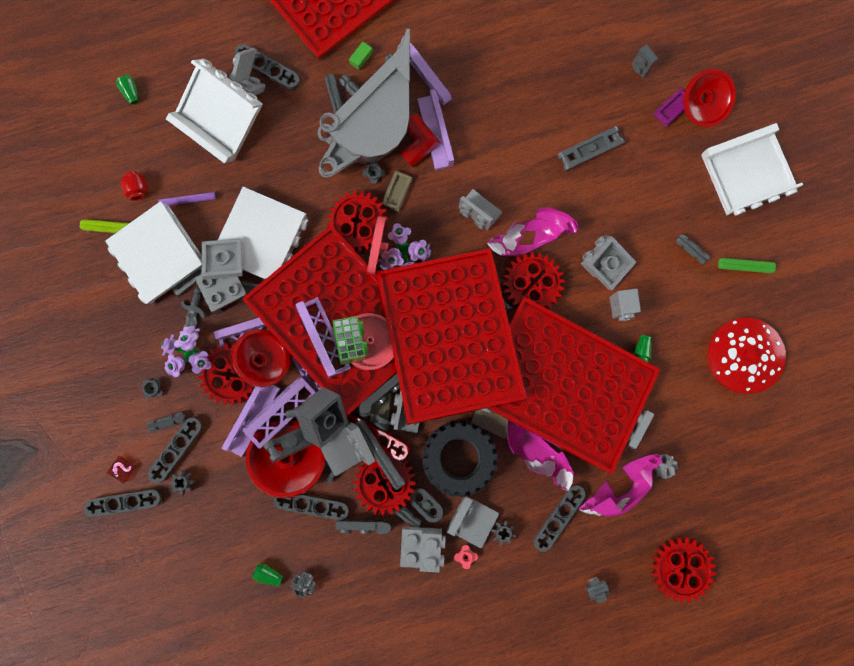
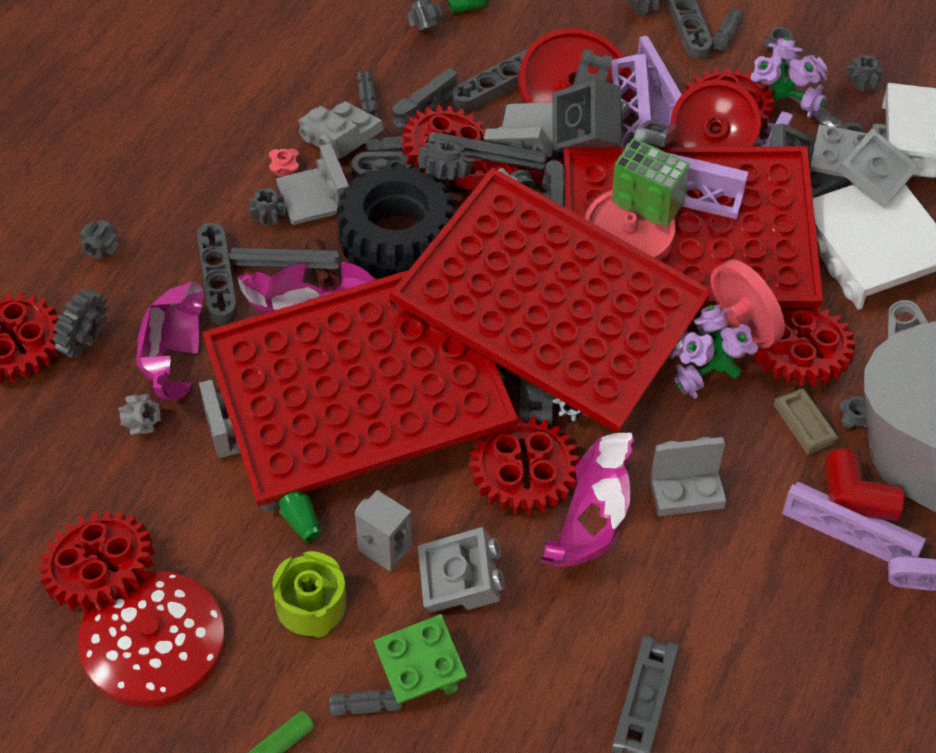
camera: 135 degrees right, 30 degrees down
(136, 326) = (864, 72): none -> dark grey gear
(237, 315) = (787, 136): none -> dark grey plate
(305, 371) = (655, 133): none -> dark grey hinge
(383, 561) = (367, 92): none -> dark grey axle
(410, 455) = (445, 160): none -> dark grey gear
(512, 471) = (324, 275): none -> copper pin
(528, 488) = (285, 258): none -> dark grey axle
(653, 539) = (80, 323): none -> dark grey gear
(660, 241) = (420, 660): none -> bright green hinge
(666, 304) = (310, 594): none -> lime brick
(725, 412) = (117, 557): none -> red gear

